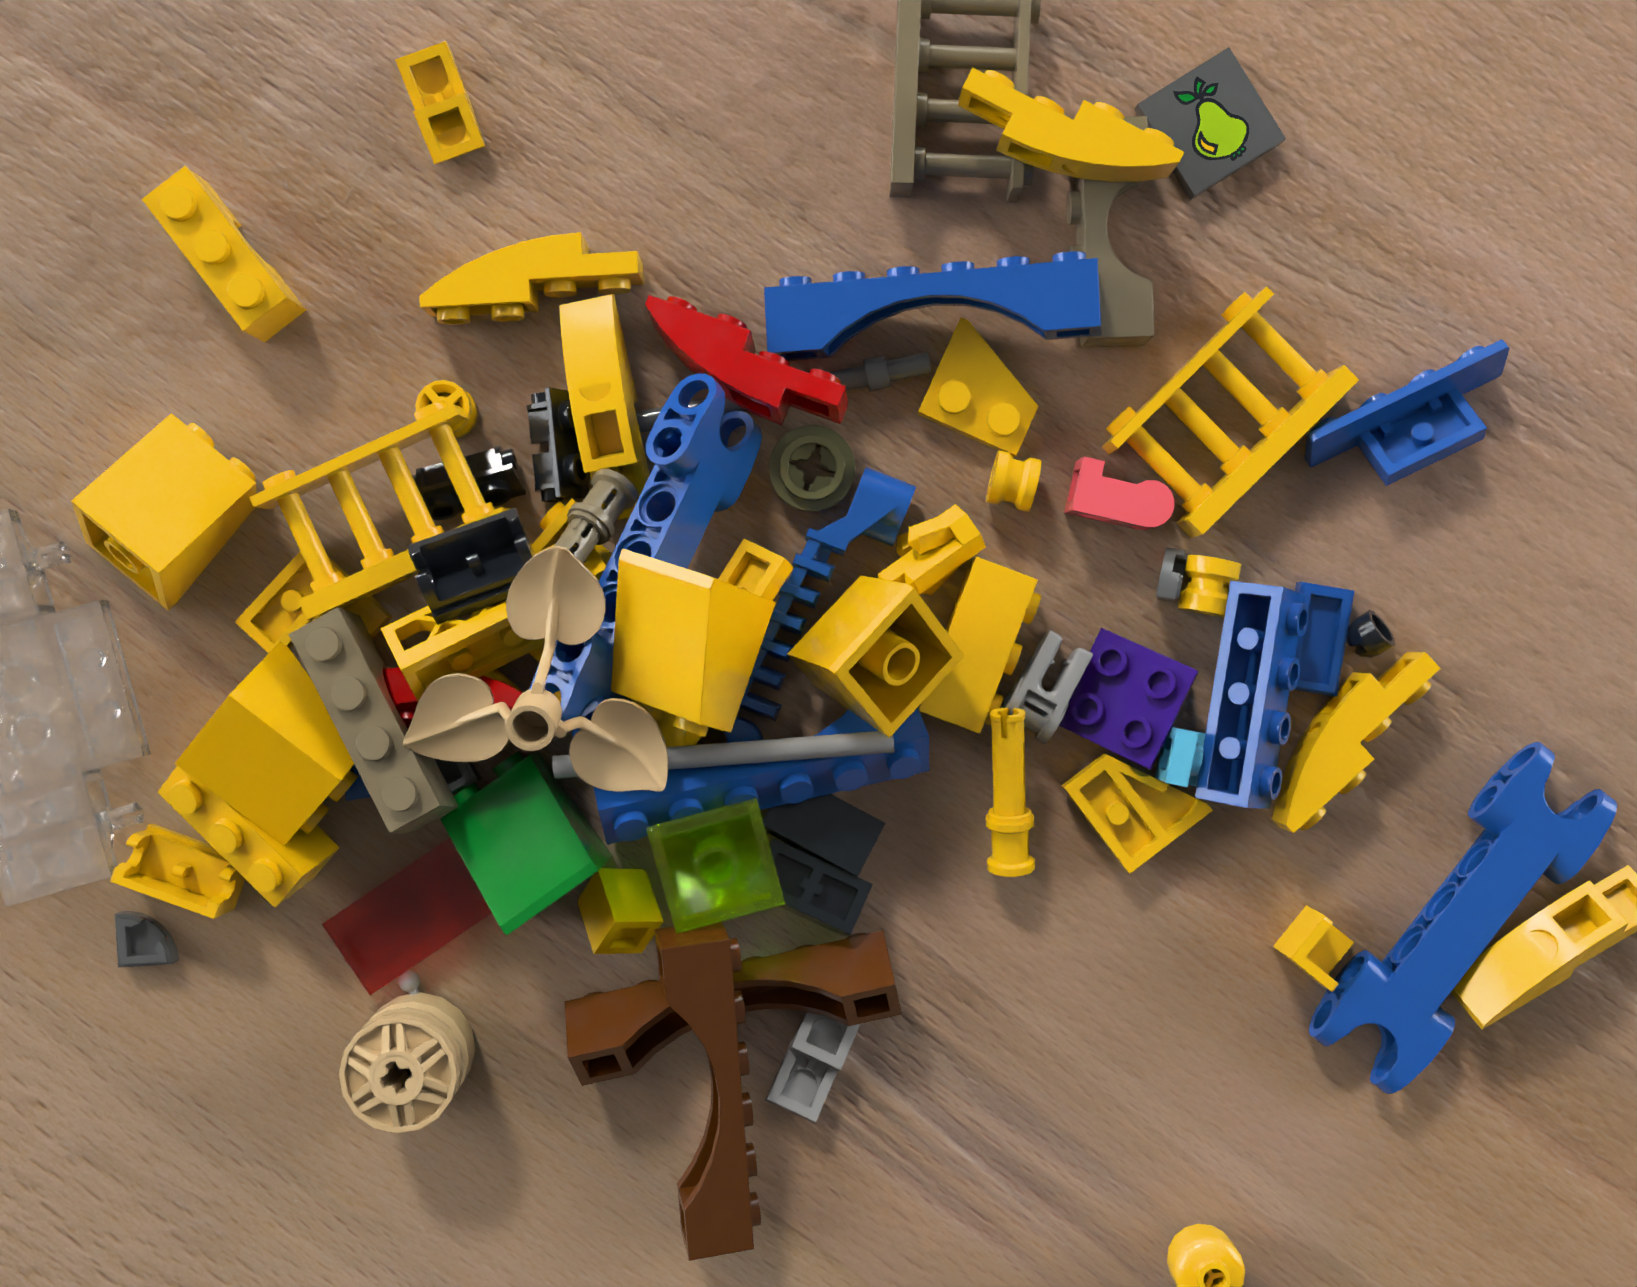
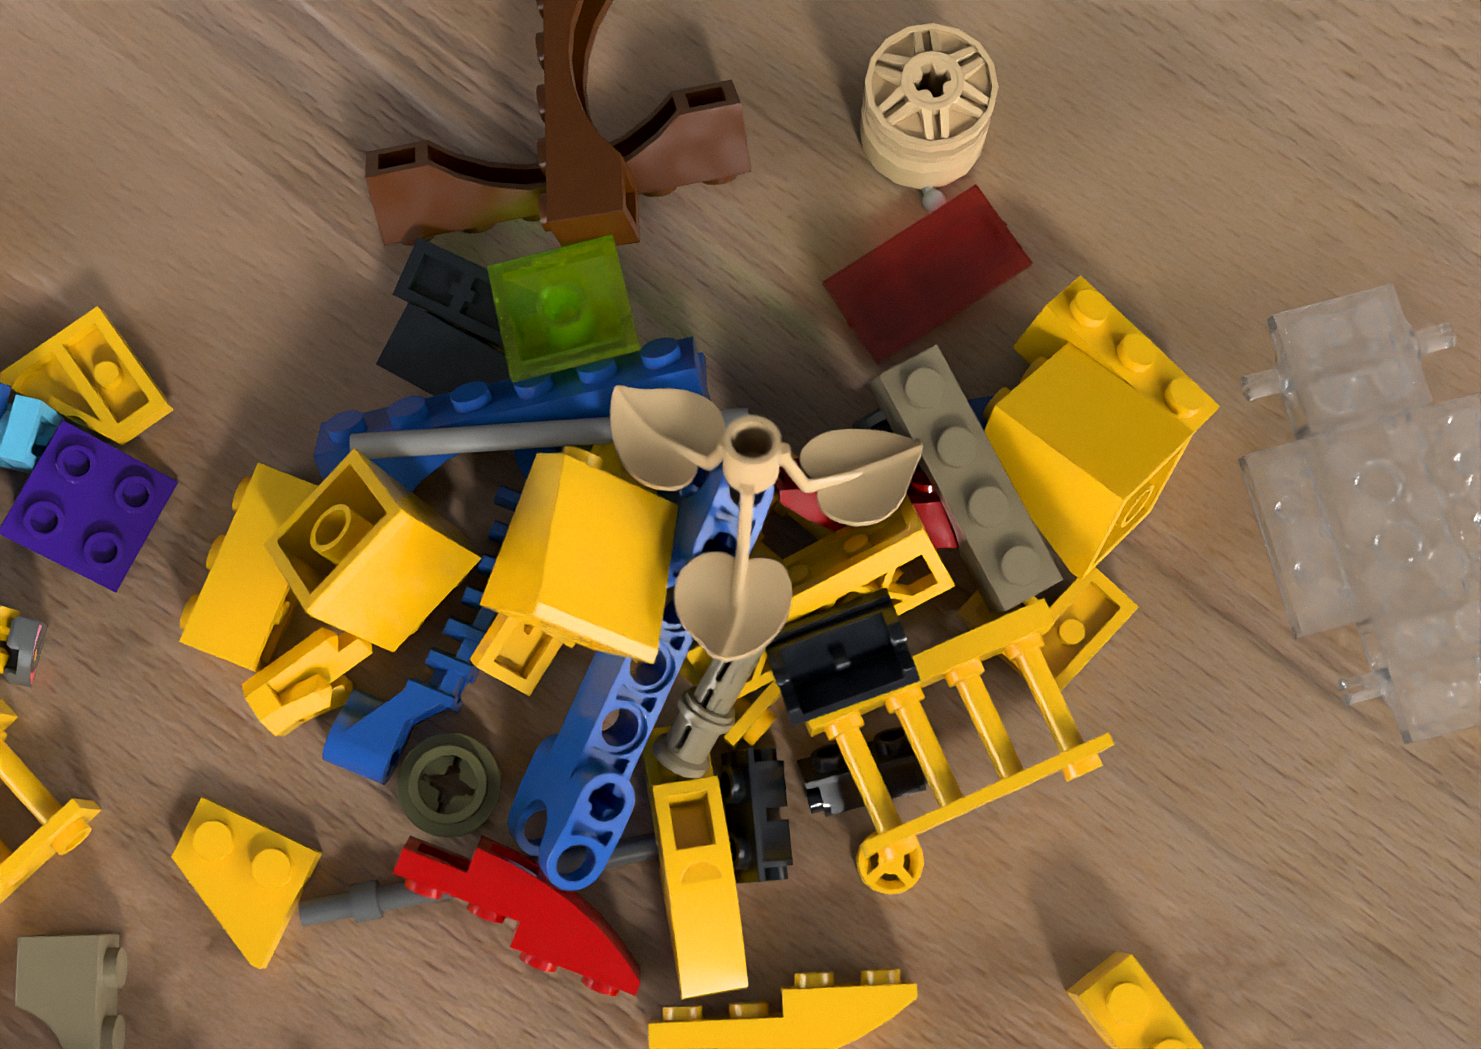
camera: 175 degrees left, 10 degrees down
(143, 941) = (1238, 248): dark grey tile -> none
(166, 508) = (1221, 743): yellow slope -> none
(180, 872) = (1196, 321): yellow hinge -> none
(523, 839) = (792, 343): green slope -> none
(619, 911) = (689, 272): yellow panel -> none
(811, 1065) = (477, 103): light grey slope -> none
(1009, 816) = (231, 370): yellow pin -> none
(1013, 481) = (205, 764): yellow wheel -> none
(1048, 297) = (145, 980): blue arch -> none
(1053, 703) = (170, 506): light grey piece -> none
(1117, 501) = (64, 735): coral leg -> none

